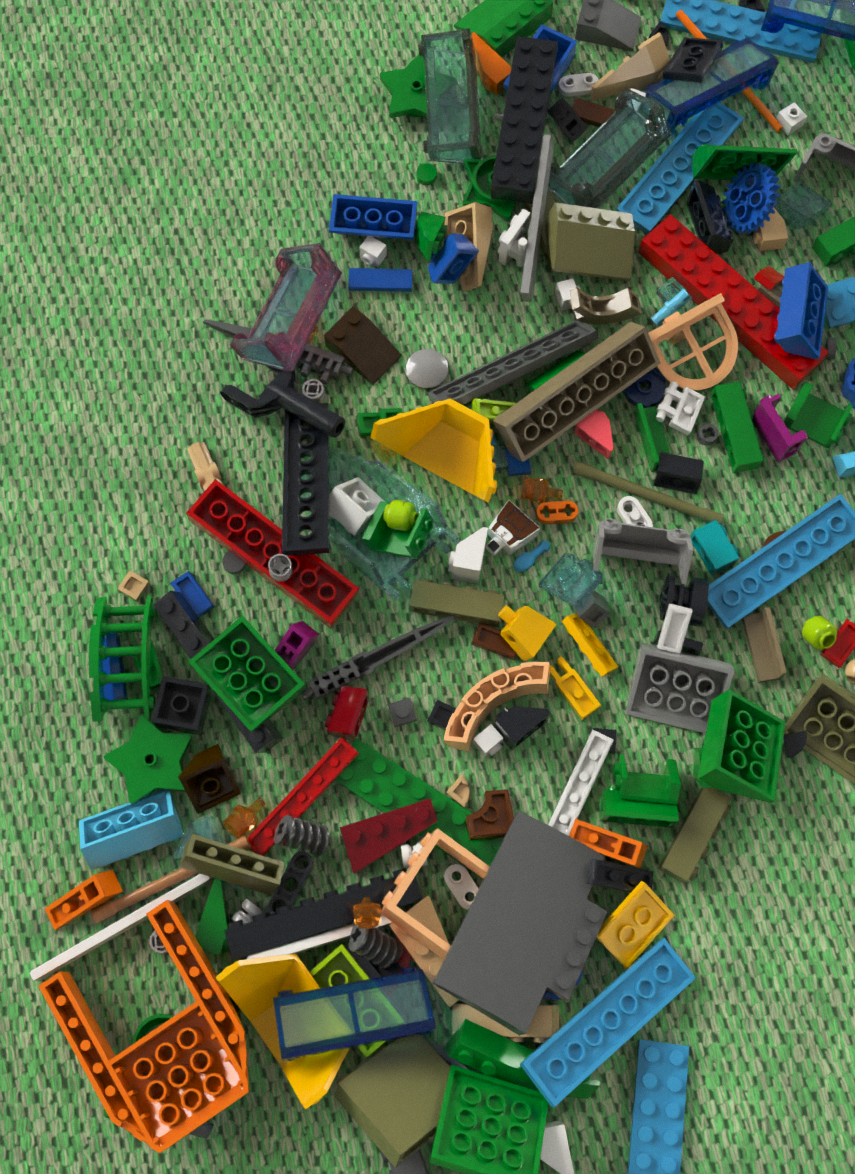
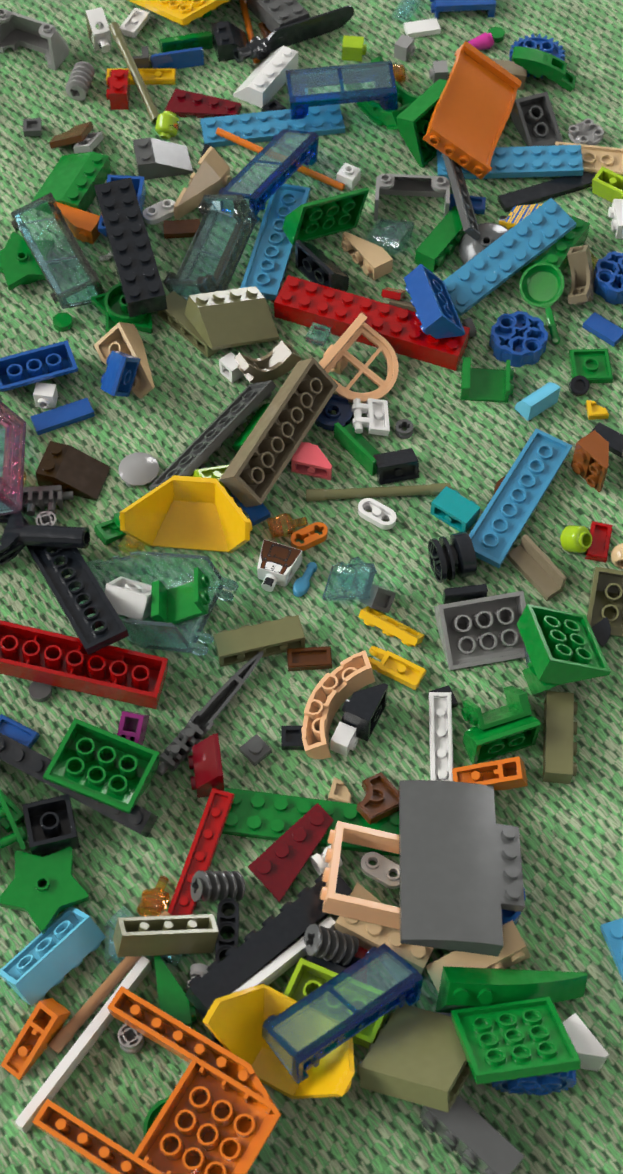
camera: 25 degrees left, 15 degrees down
(208, 779) = (107, 879): dark brown slope -> none
(279, 563) = (92, 661): light grey wheel -> none
(367, 914) = (312, 913): clear orange piece -> none
(400, 515) = (176, 584): lime head -> none
(430, 233) = (90, 362): green slope -> none
(468, 557) = (252, 598): white slope -> none
(513, 241) = (167, 342): white plate -> none
(525, 630) = (330, 635): yellow torso -> none
(537, 218) = (178, 316): light grey tile -> none
(567, 119) = (165, 239): black slope -> none
(607, 1022) = (566, 917): dark azure plate -> none
(617, 876) = (515, 797): black tile -> none
(634, 924) = (547, 832): yellow tile -> none
(644, 544) = (397, 526): light grey windscreen -> none
(671, 307) = (325, 342): medium azure pin -> none
(674, 628) = (457, 579): white tile -> none
(693, 59) = (247, 158): black tile -> none
(737, 427) = (425, 413): green brick -> none
(751, 198) = (348, 239): blue gear -> none
(774, 430) = (457, 402): magenta panel -> none

